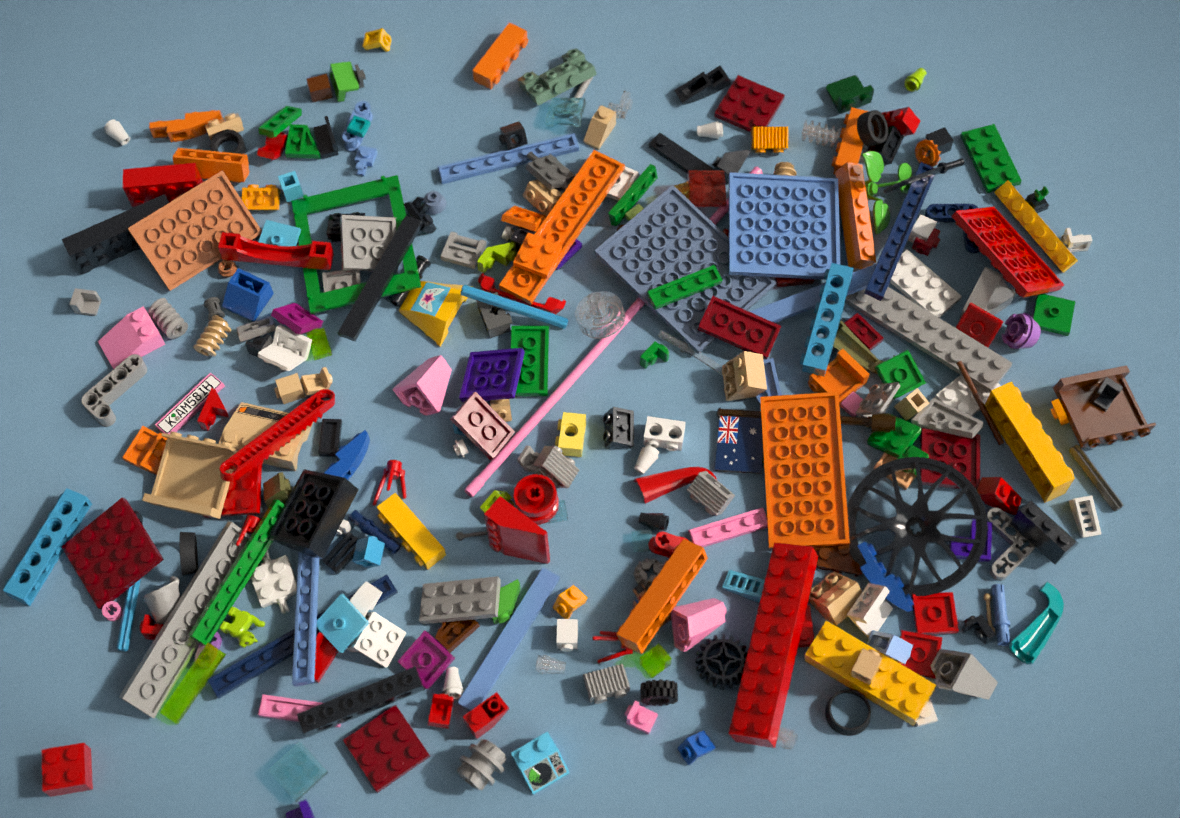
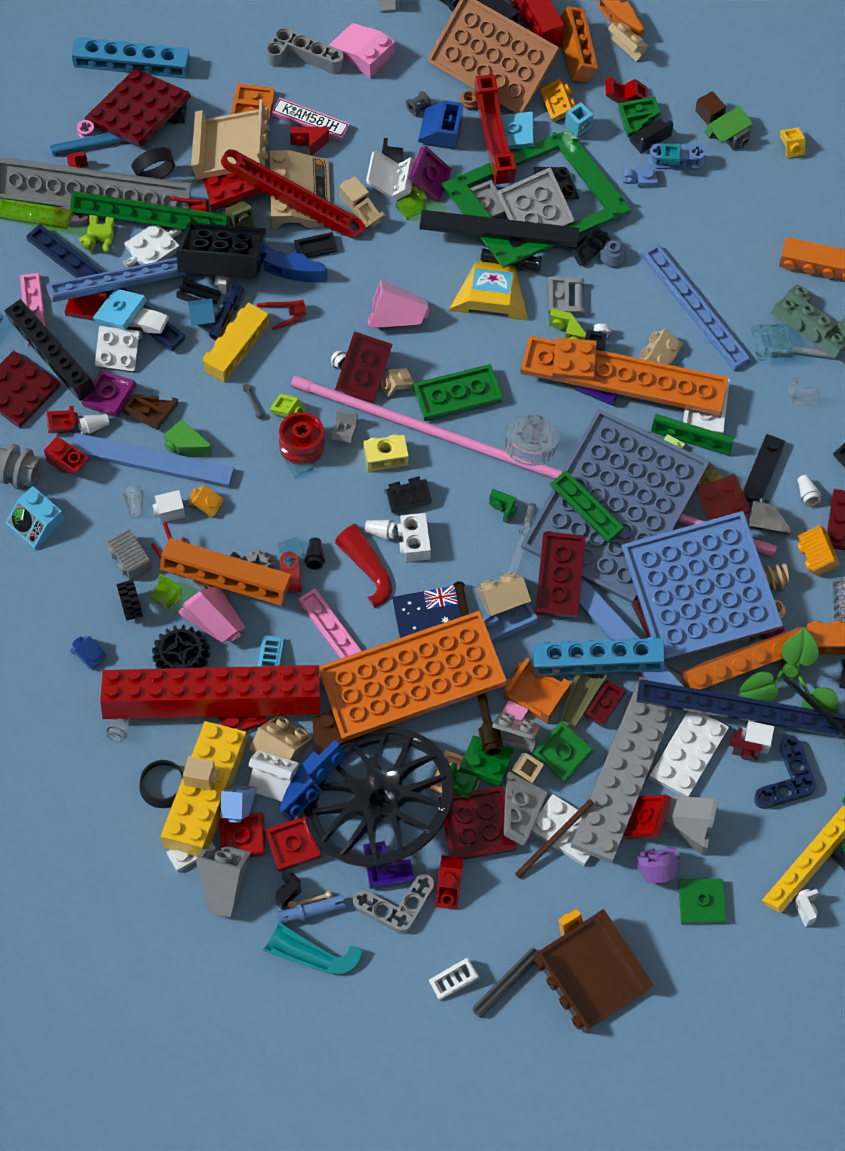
camera: 70 degrees right, 0 degrees up
(163, 600) = (102, 160): light grey piece -> none
(167, 319) = (393, 68): light grey piece -> none
(211, 336) = (386, 112): tan piece -> none
(228, 135) = (613, 42): black tyre -> none
(256, 328) = (406, 142): light grey tile -> none
(280, 121) = (651, 85): green plate -> none
(460, 600) = (174, 402): light grey plate -> none
(492, 374) = (424, 360): dark purple plate -> none
(494, 324) = (498, 344): dark grey brick -> none
(514, 306) = (509, 357): dark azure axle -> none
(515, 533) = (252, 417): red slope -> none
(519, 138) = (721, 300): black brick -> none
(523, 218) = (620, 336): orange tile -> none
(549, 171) = (689, 345): dark grey plate -> none
(552, 304) = (529, 394): red piece -> none
(556, 466) = (341, 445): light grey brick -> none
(600, 127) = (767, 380): tan slope -> none
(640, 717) = (104, 594): bright pink bracket -> none
(710, 493) = (359, 595): light grey brick -> none
(1007, 251) = (755, 826): red plate -> none
(1029, 442) = (519, 896): yellow brick -> none
(1043, 532) = (420, 935): black slope -> none
(1105, 394) = (608, 968): black panel -> none

